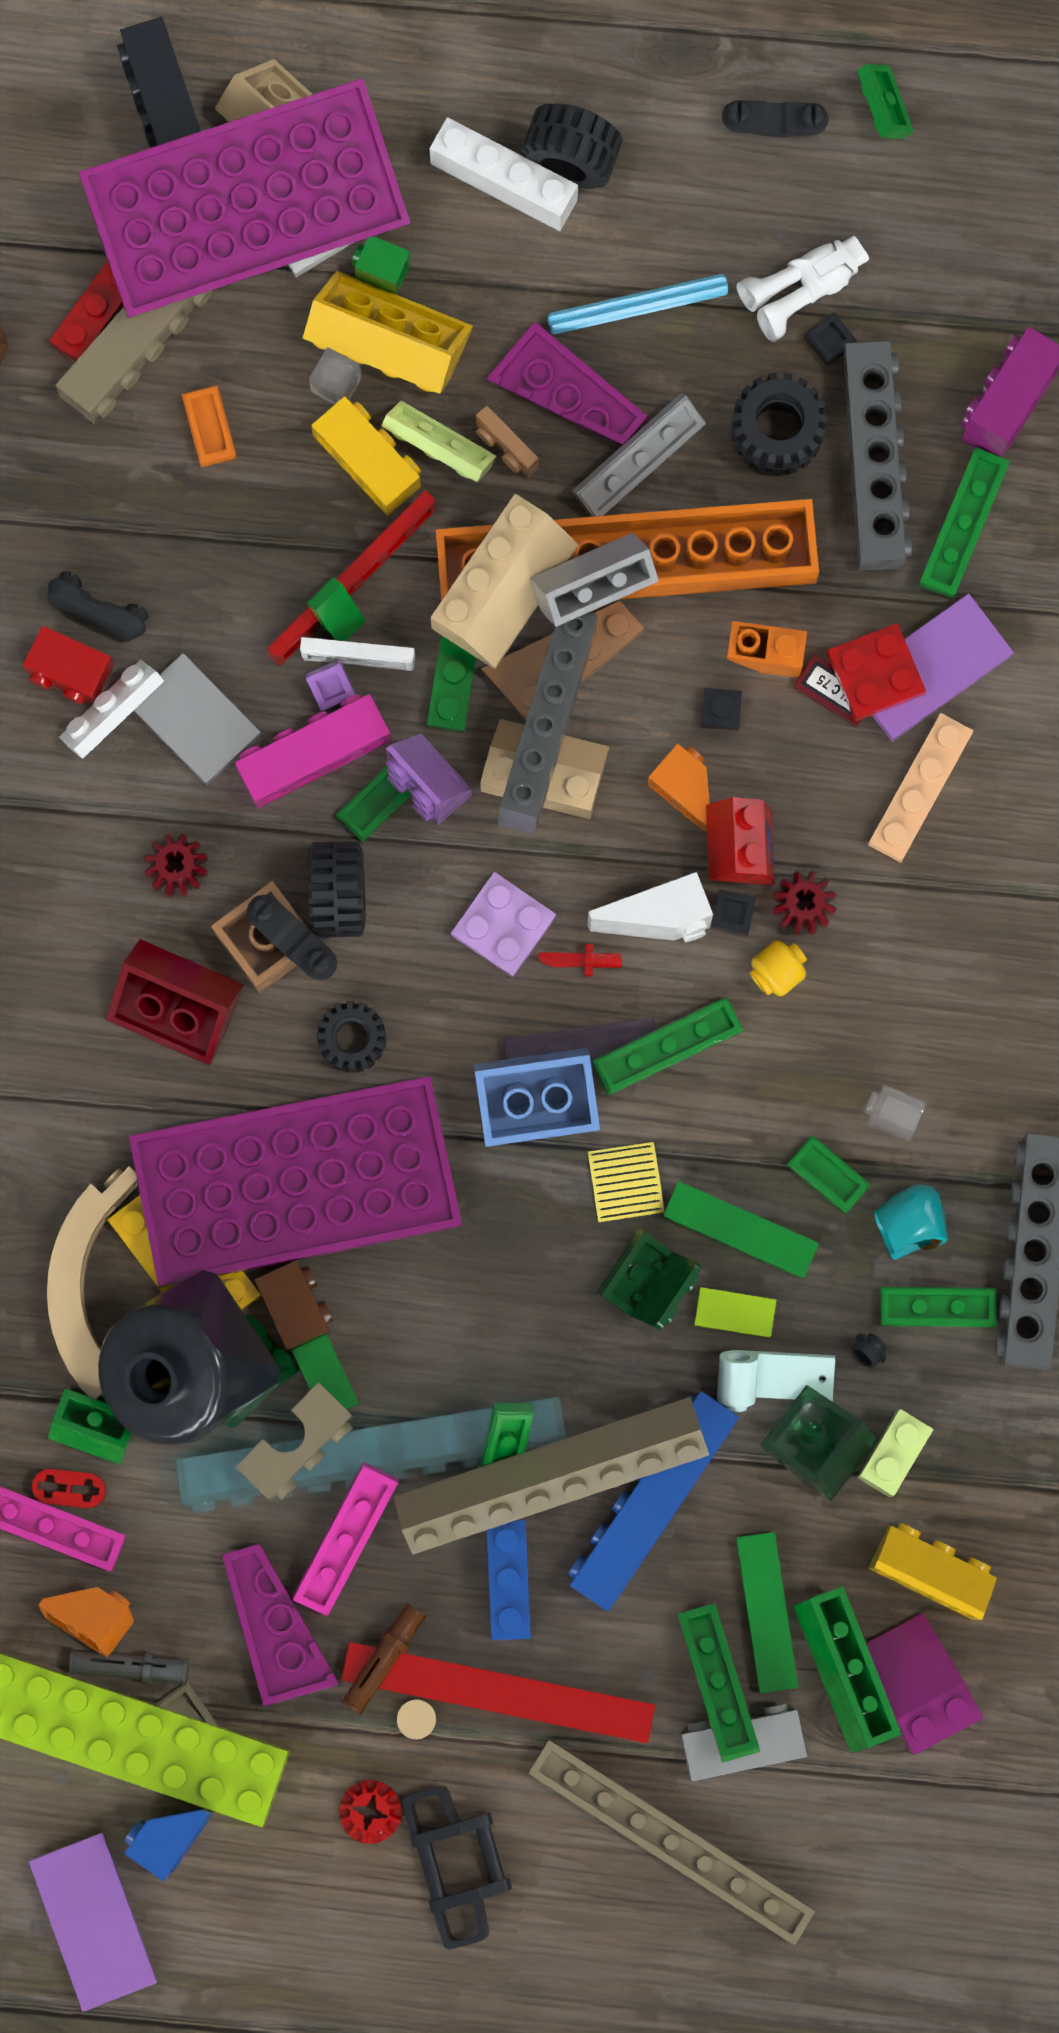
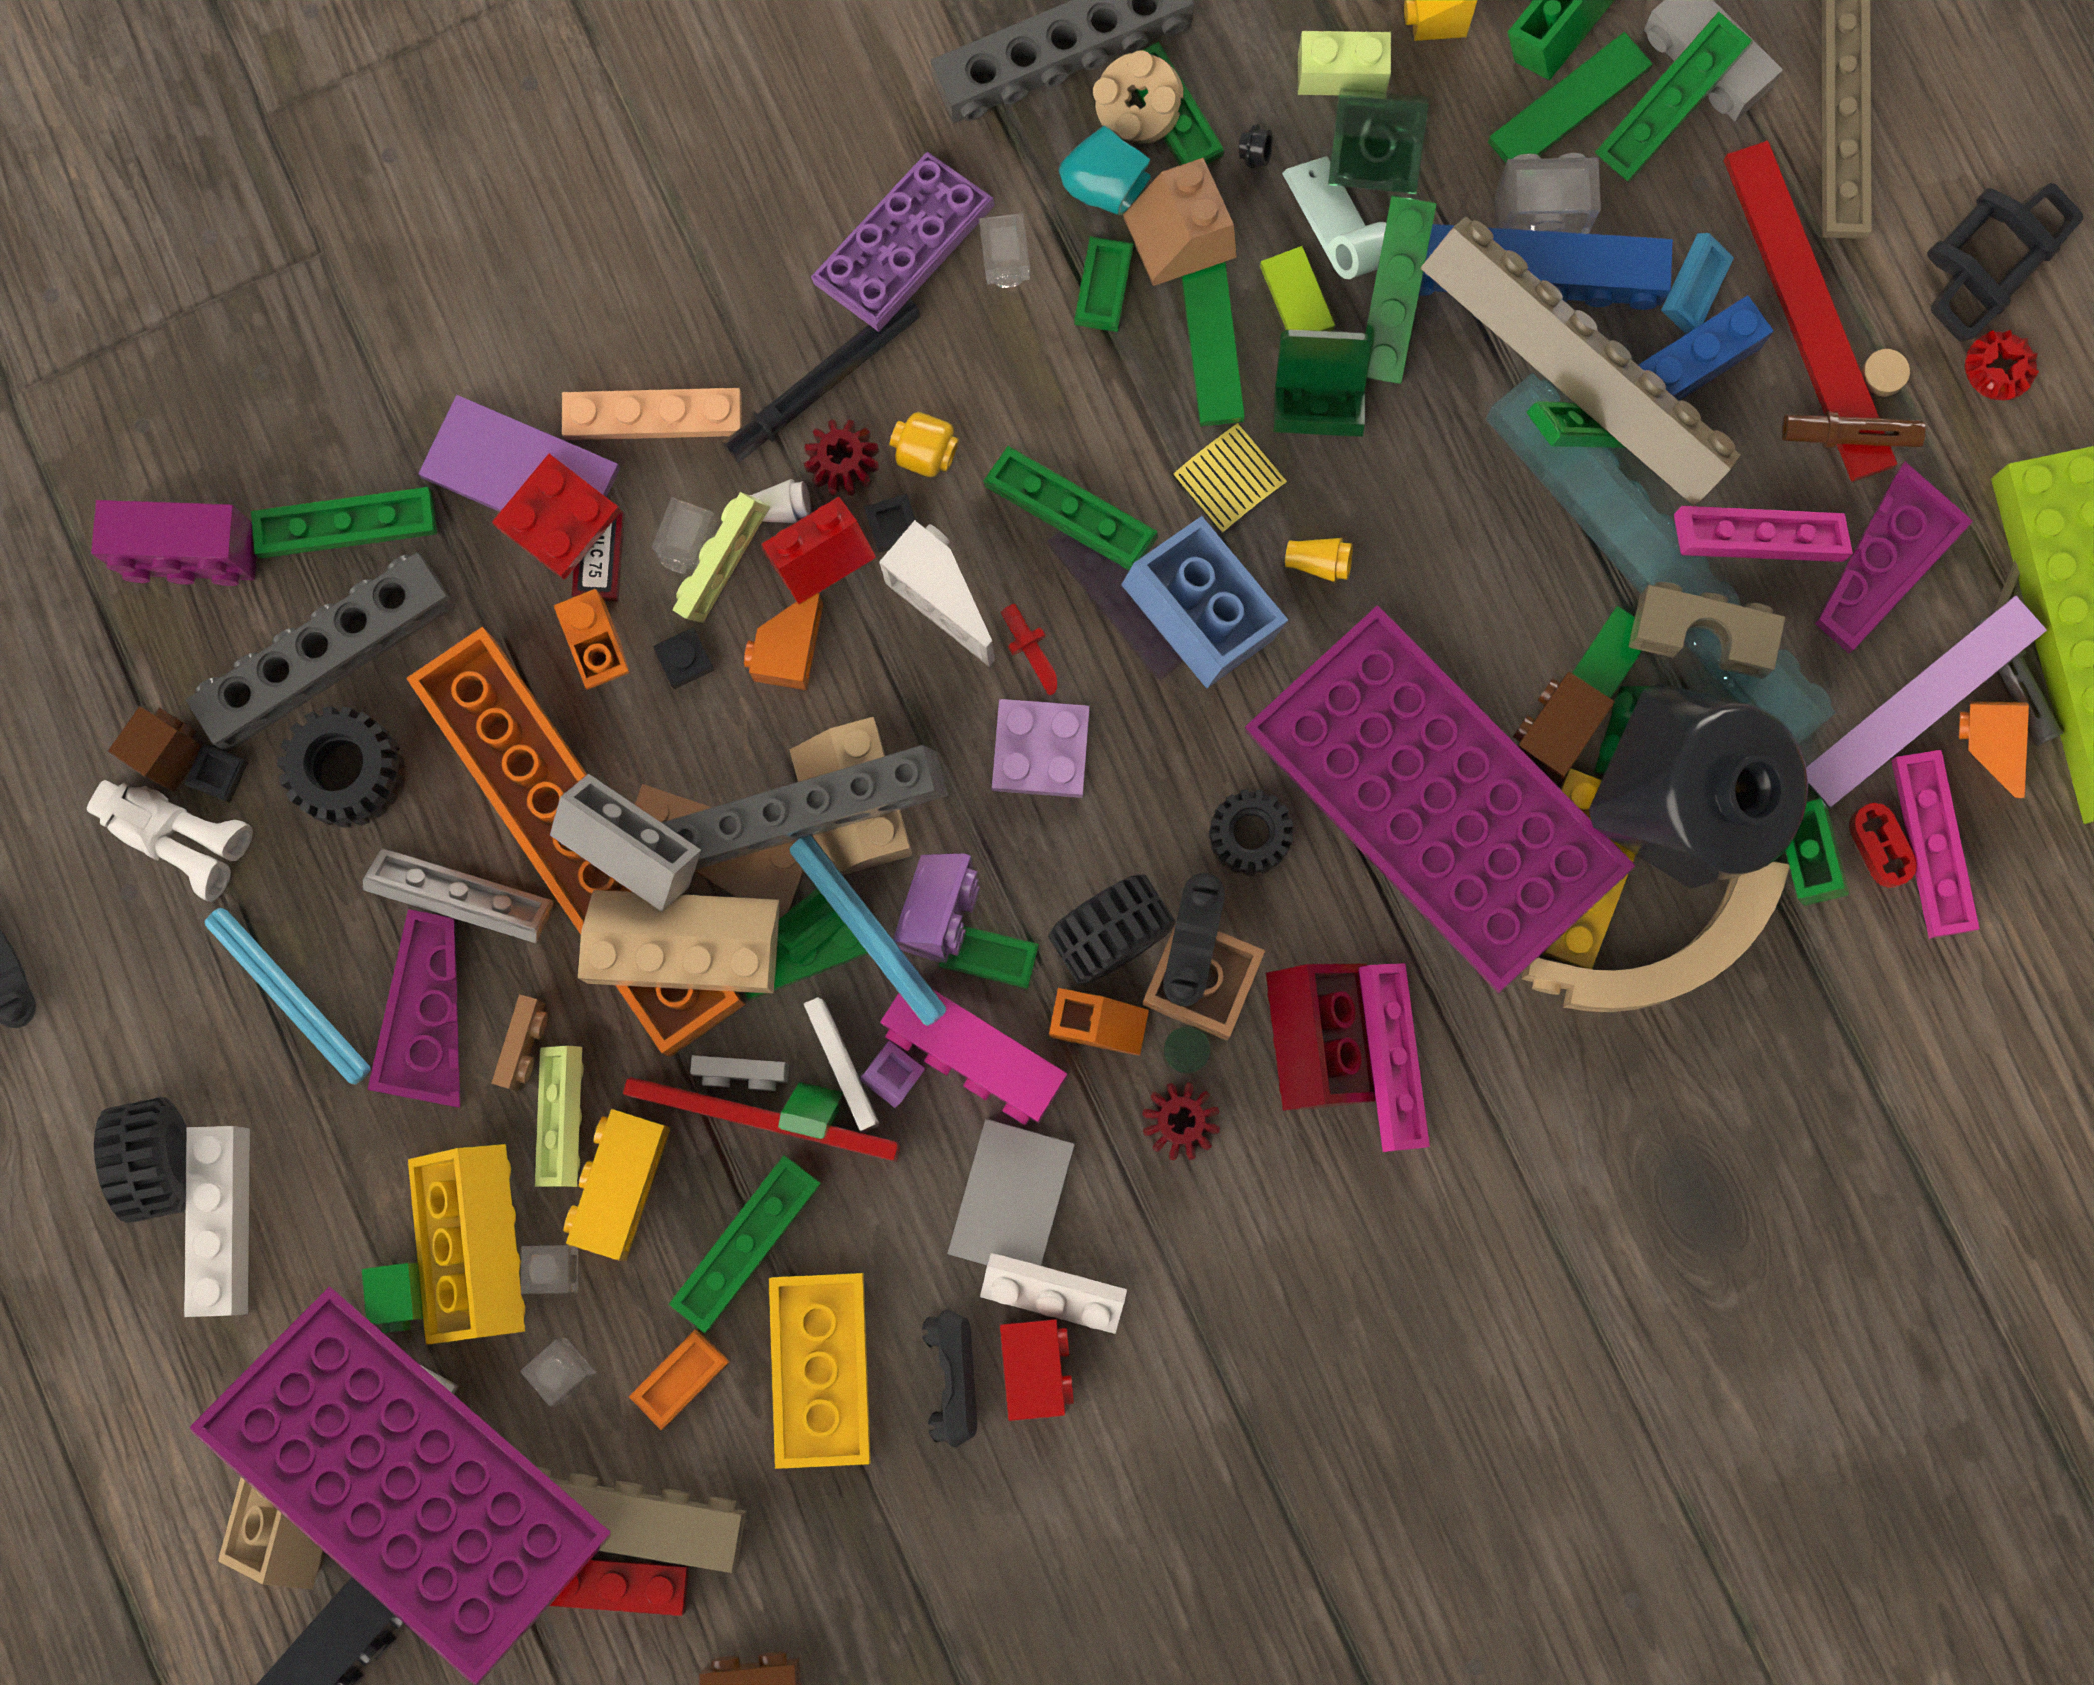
camera: 115 degrees left, 0 degrees up
(130, 1041) = (1394, 1057): none -> dark pink plate
(153, 1580) = (1923, 701): none -> lavender tile
(156, 522) = (819, 1371): none -> yellow plate
(223, 898) = (1186, 1050): none -> clear green plate
(261, 346) = (557, 1372): none -> clear brick
(273, 520) = (745, 1244): none -> green plate
(280, 845) = (1098, 1022): none -> orange slope
(404, 568) = (758, 1073): none -> light grey plate
(437, 719) = (868, 930): none -> medium azure axle
(471, 692) = (806, 926): none -> green tile
(522, 1209) = (1322, 557): none -> yellow cone
(566, 1617) = (1697, 283): none -> dark azure tile
(691, 1379) = (1398, 286): none -> green plate
(694, 1536) = (1549, 194): none -> clear brick
(776, 771) = (720, 557): none -> yellowish green plate
(795, 841) = (787, 502): none -> white cone
(809, 757) = (683, 534): none -> clear brick
(837, 1252) = (1181, 223): none -> medium nougat slope
(865, 303) = (157, 747): none -> reddish brown brick
(874, 923) = (816, 384): none -> black axle
(946, 1042) = (903, 241): none -> medium lavender tile
(960, 1261) = (1114, 92): none -> tan plate

